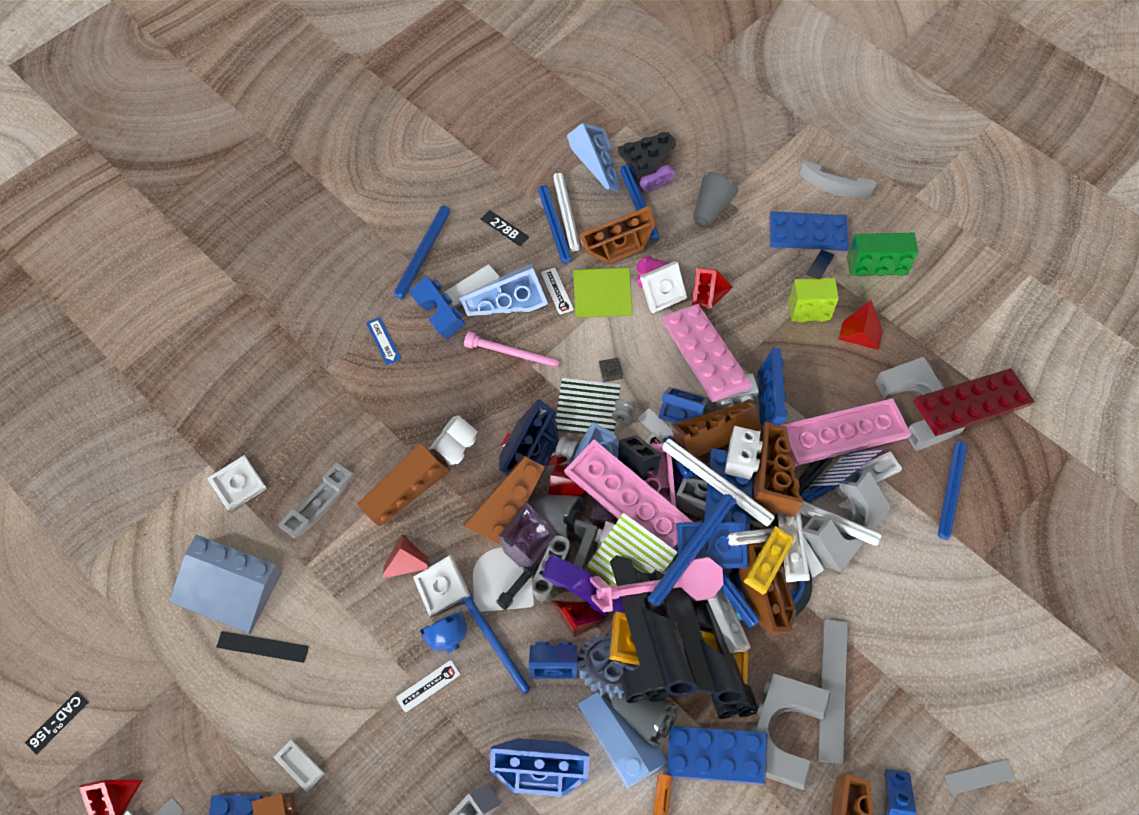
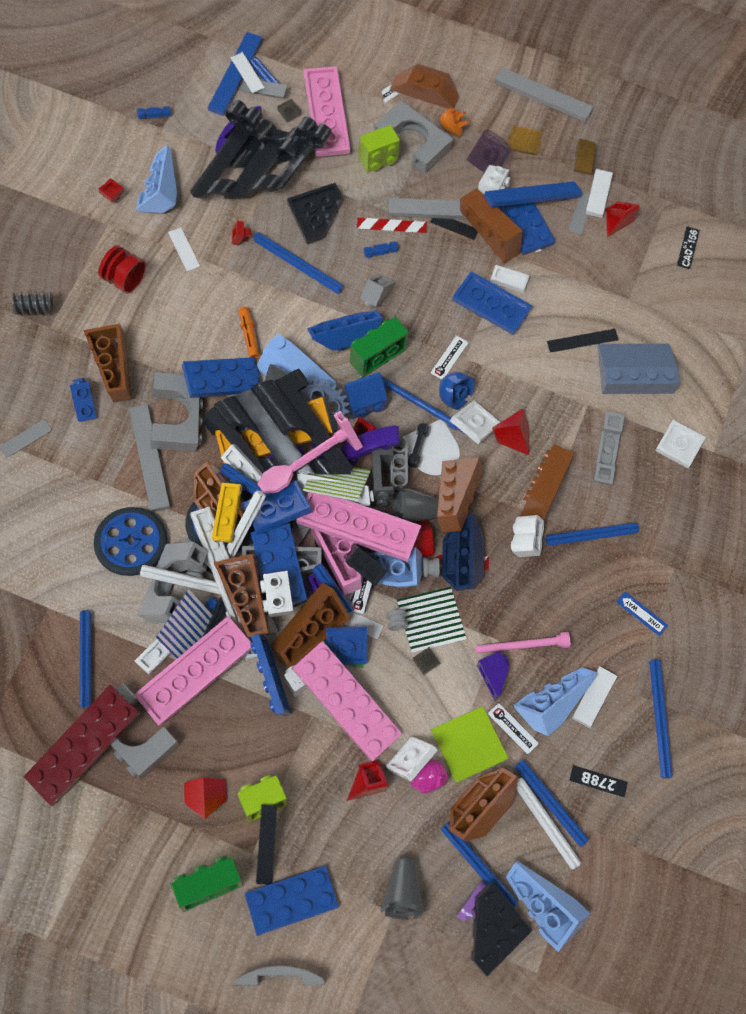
camera: 150 degrees right, 5 degrees up
(340, 736) = (492, 303): none -> blue plate
(386, 425) = (591, 534): none -> blue axle
(447, 318) = (622, 667): blue arch -> none
(510, 718) = (378, 346): none -> green brick
(526, 536) = (426, 470): clear purple slope -> none
(551, 334) = (494, 672): none -> dark purple slope
(691, 550) = (290, 489): blue axle -> none
(718, 482) = (290, 560): white axle -> none
(858, 615) = (117, 520): none -> wedge

